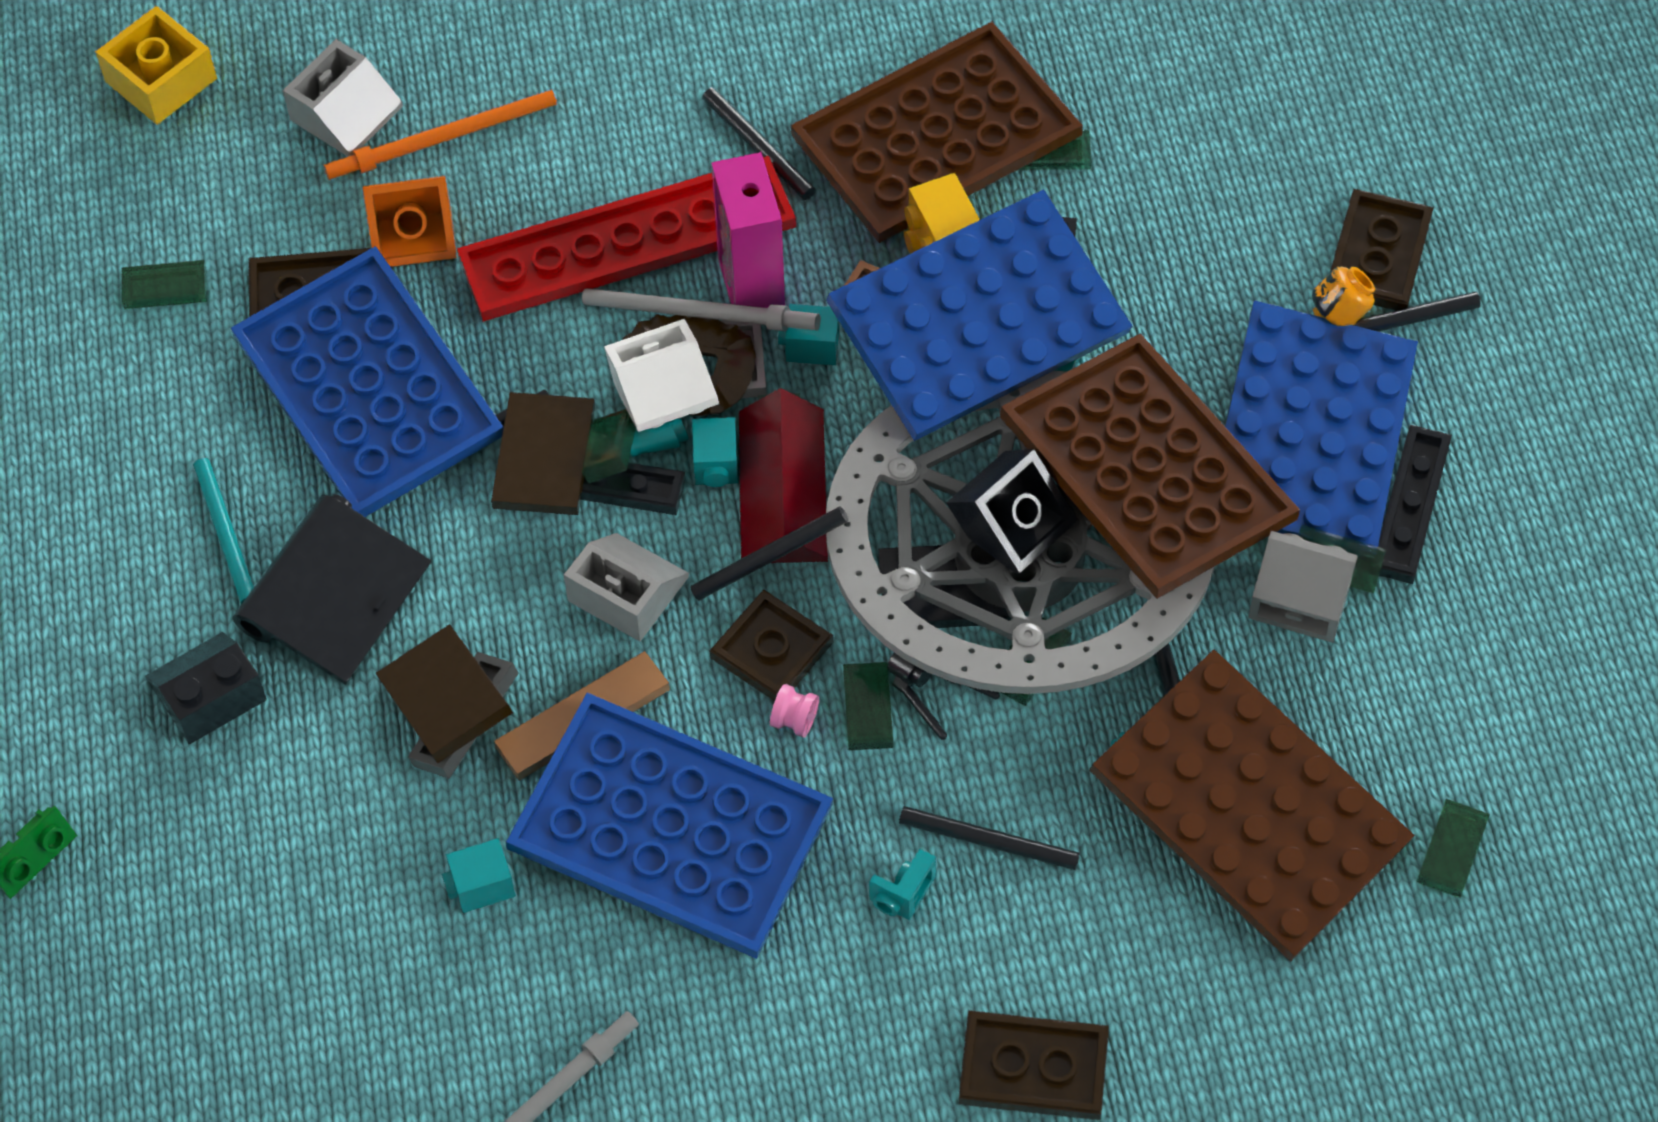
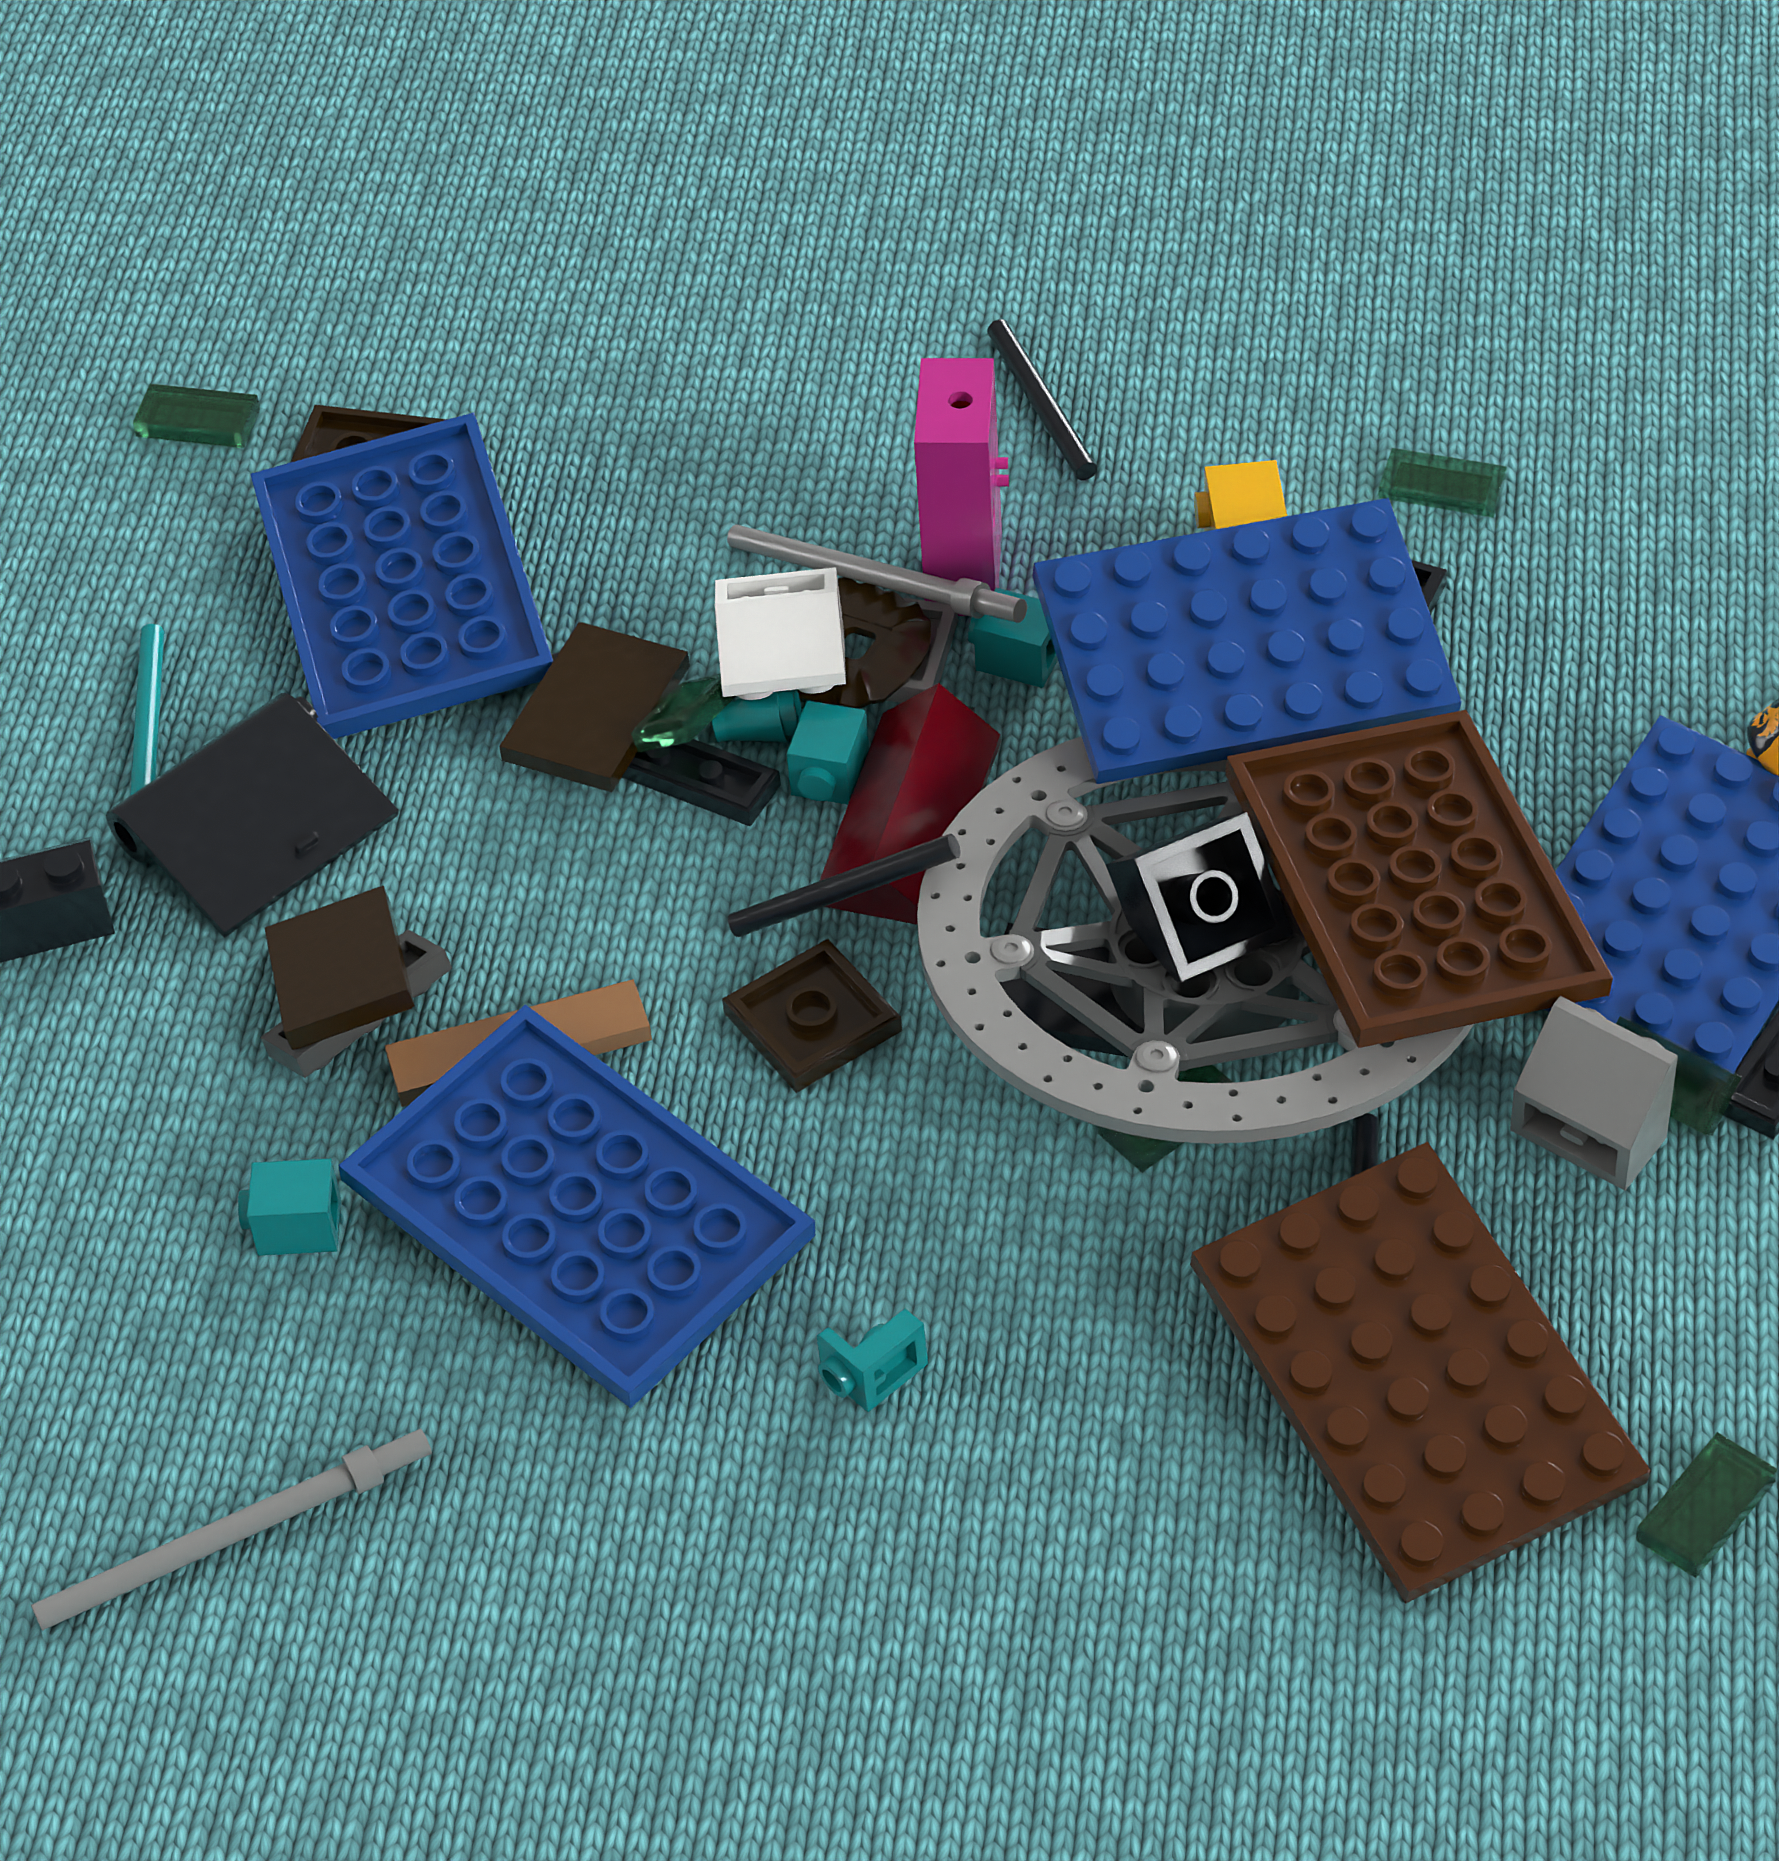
camera: 20 degrees right, 10 degrees down
(156, 65) = (290, 159): yellow brick -> none
(341, 98) = (507, 239): slope -> none
(365, 159) = (514, 319): orange bar -> none
(411, 220) = (538, 396): orange slope -> none
(598, 246) = (784, 476): red plate -> none
(623, 584) = (634, 886): light grey slope -> none
(794, 710) = (806, 1098): bright pink wheel -> none
(868, 706) = (915, 1120): clear green tile -> none
(908, 675) = (991, 1091): black plant -> none
(955, 111) = (1337, 407): reddish brown plate -> none
(989, 838) = (1022, 1330): black piece -> none
(1034, 1065) = (969, 1647): dark brown tile -> none

